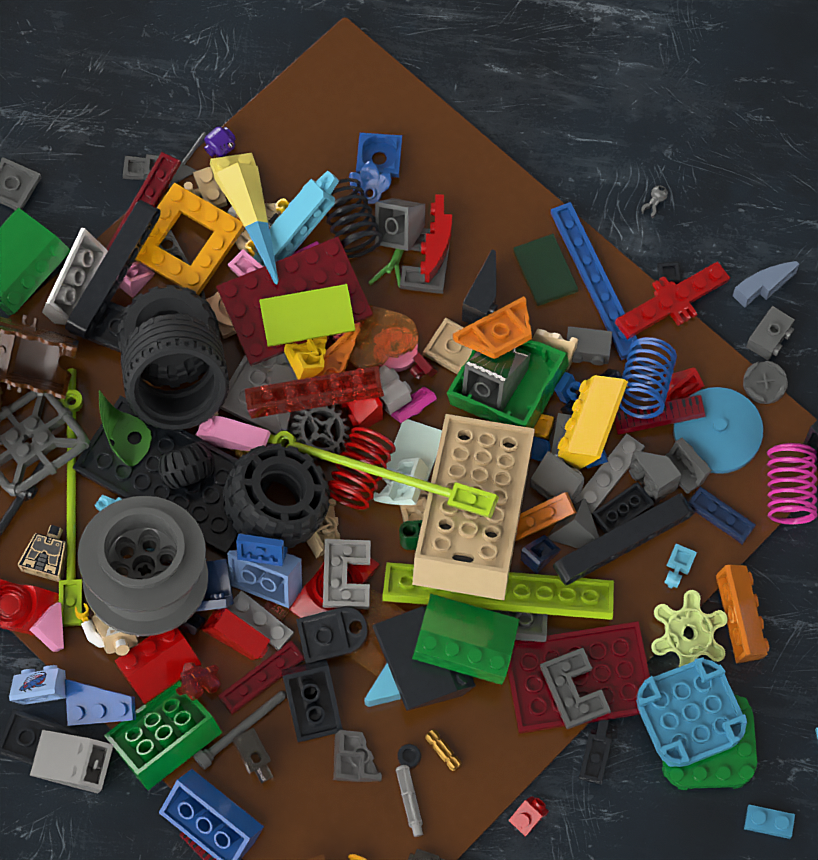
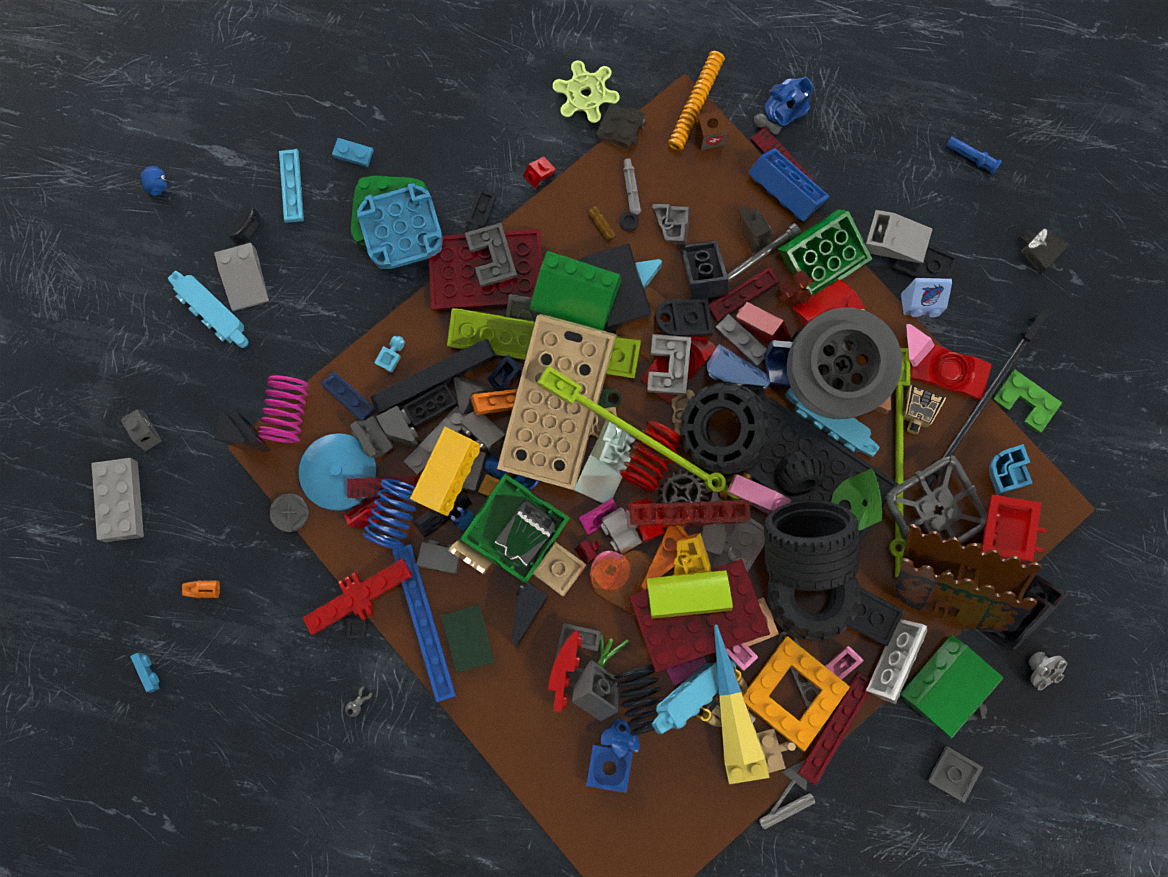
camera: 175 degrees left, 10 degrees up
(96, 705) = (878, 280): wing -> none
(112, 269) = (863, 658): black beam -> none
(138, 167) = (833, 783): dark grey slope -> none
(188, 138) = (787, 810): none -> light grey axle
(219, 142) = (759, 796): dark purple head -> none
(261, 550) = (741, 376): blue bracket -> none
(498, 331) = (517, 565): orange wing -> none
(702, 624) = (383, 291): yellowish green plate -> none
(742, 614) = (345, 308): orange slope -> none
(764, 282) = (272, 608): sand blue slope -> none
(770, 333) = (275, 558): dark grey brick -> none

